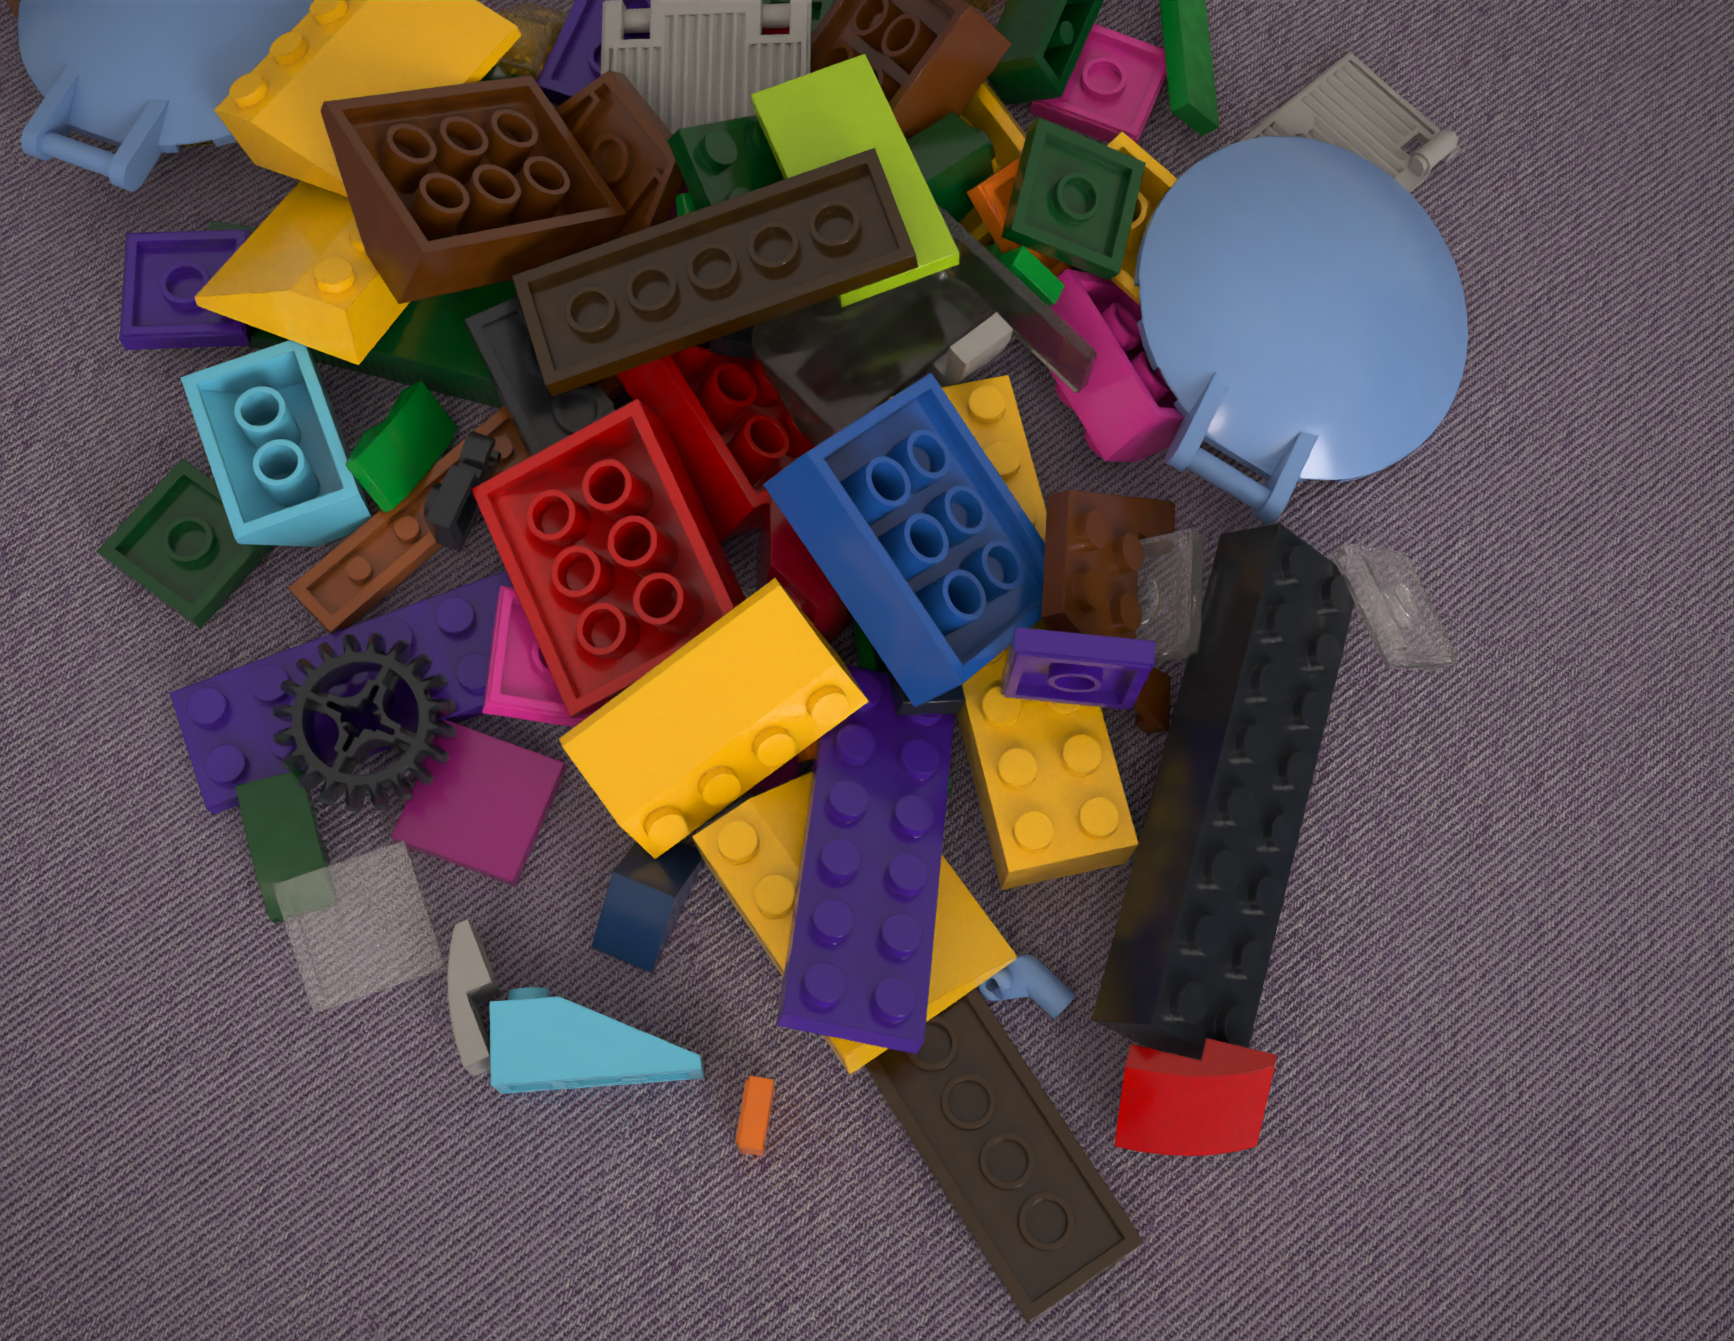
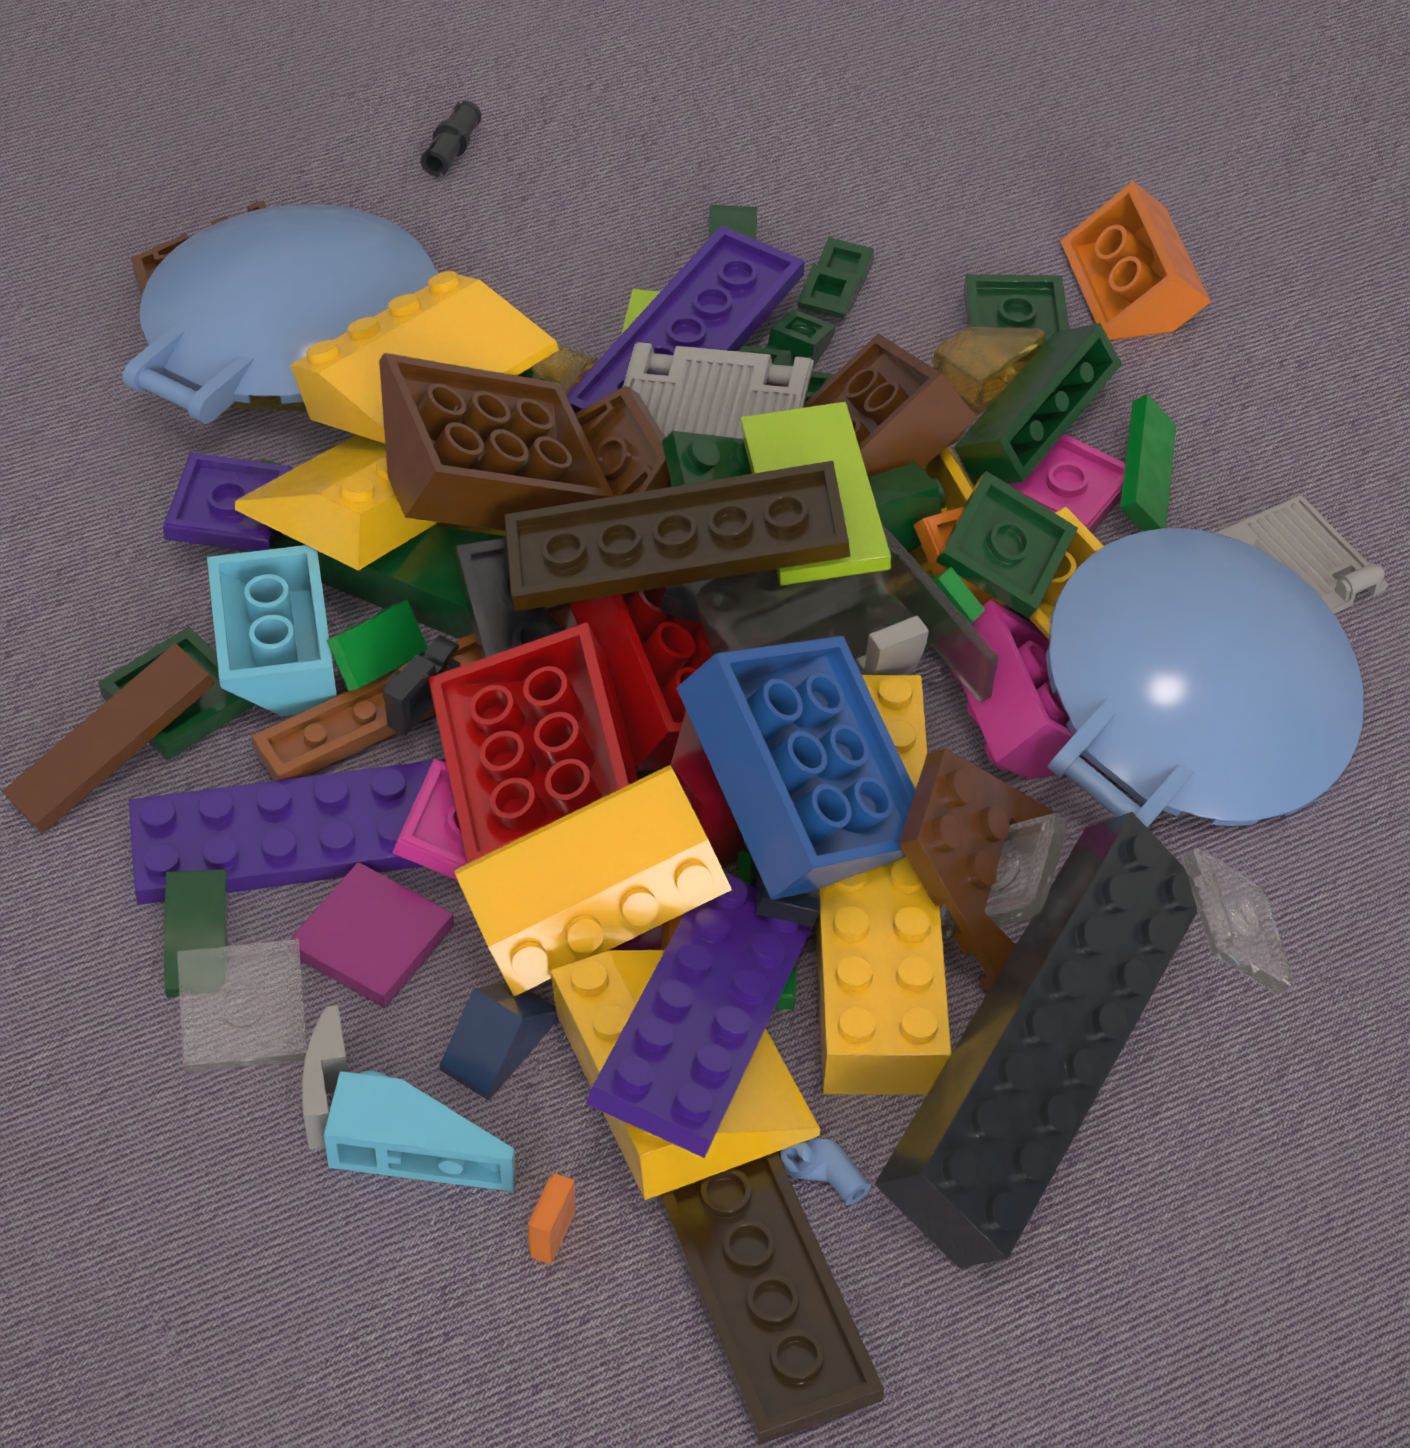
camera: 15 degrees right, 20 degrees down
(126, 624) = (108, 738): none -> reddish brown tile
(313, 698) = (290, 809): black gear -> none
(1076, 668) = (918, 883): dark purple tile -> none
(1193, 1104) = (954, 1271): red slope -> none

